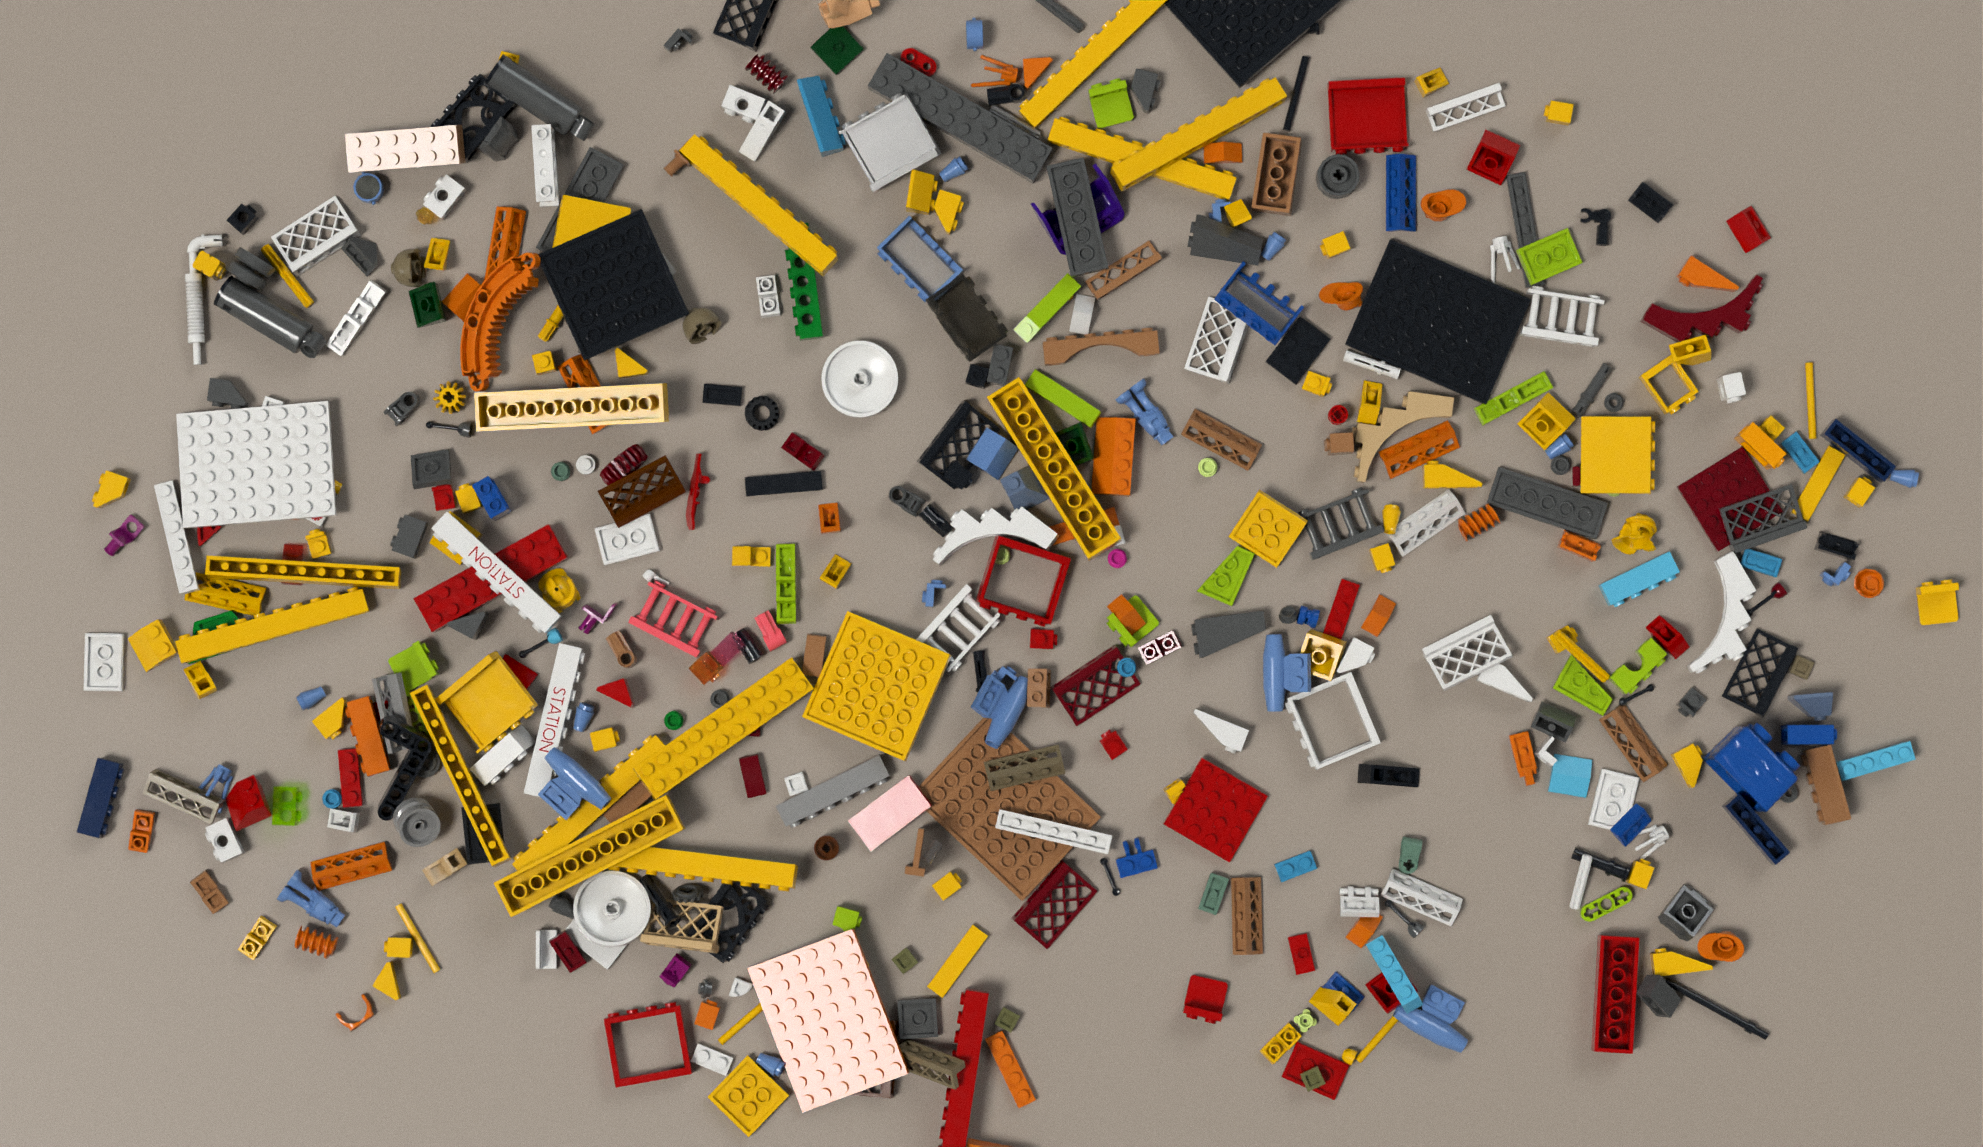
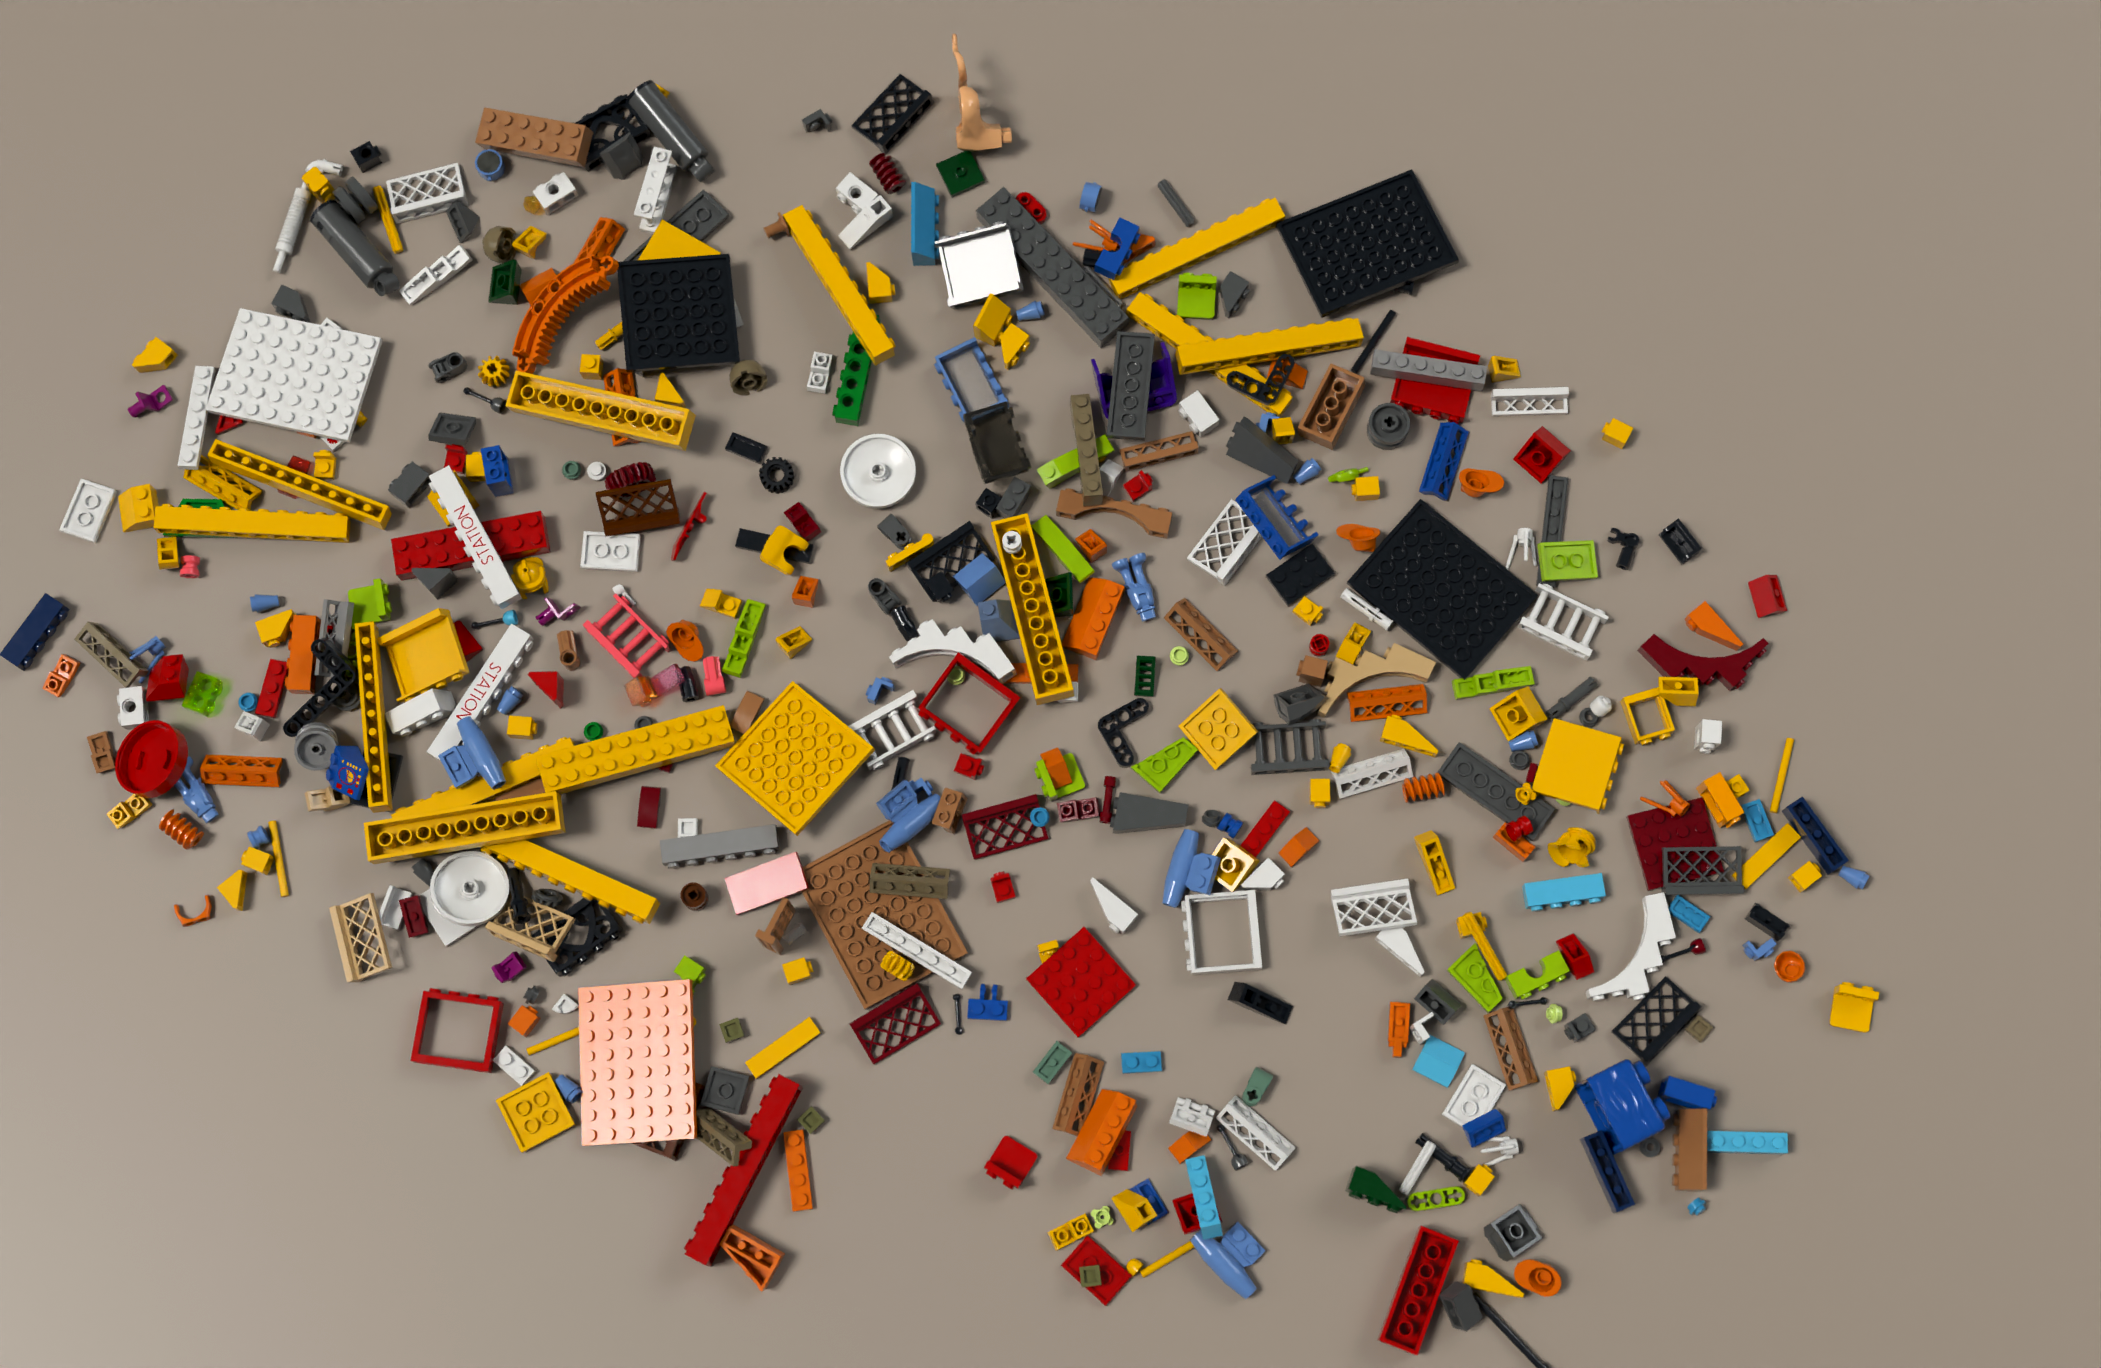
camera: 25 degrees right, 10 degrees down
(225, 686) = (189, 567): none -> coral wheel
(263, 885) = (151, 759): none -> red brick
(392, 924) = (258, 837): none -> medium blue wheel
(457, 837) = (347, 771): none -> blue slope
(516, 999) = (348, 942): none -> tan fence
(731, 604) = (685, 639): none -> orange piece
(787, 486) = (776, 545): none -> yellow piece
(796, 190) = (879, 285): none -> yellow slope
(892, 431) = (893, 529): none -> dark grey piece
(917, 447) = (910, 552): none -> yellow plate
(1015, 415) = (1012, 546): none -> white wheel
(1023, 66) = (1110, 263): none -> blue arch
(1041, 852) = (897, 966): none -> yellow gear
(1055, 294) = (1087, 450): none -> dark tan arch
(1088, 385) = (1091, 545): none -> orange slope
(1115, 312) = (1138, 485): none -> red bracket
(1117, 558) = (1065, 713): dark pink plate -> none
(1150, 222) = (1198, 414): none -> white brick
(1169, 560) = (1115, 732): none -> black beam
(1171, 484) = (1145, 659): none -> dark green slope
(1181, 613) = (1109, 784): none -> dark red bar
(1205, 179) = (1263, 388): none -> black beam
(1280, 942) = (1102, 1131): none -> orange slope
(1312, 237) = (1347, 474): none -> lime hand
(1336, 477) = (1298, 702): none -> dark grey slope
(1359, 108) = (1428, 370): none -> light grey brick
(1510, 589) = (1434, 861): none -> yellow slope
(1540, 913) = (1369, 1186): none -> dark green slope
(1576, 498) = (1522, 797): none -> yellow plate
(1580, 534) = (1520, 827): none -> red wheel
(1622, 389) = (1601, 706): none -> white piece
(1664, 697) = (1554, 1013): none -> yellowish green plate
(1722, 461) = (1678, 804): none -> orange plant
(1814, 705) = (1700, 1066): sand blue slope -> none
(1846, 834) = (1696, 1206): none -> dark azure plate

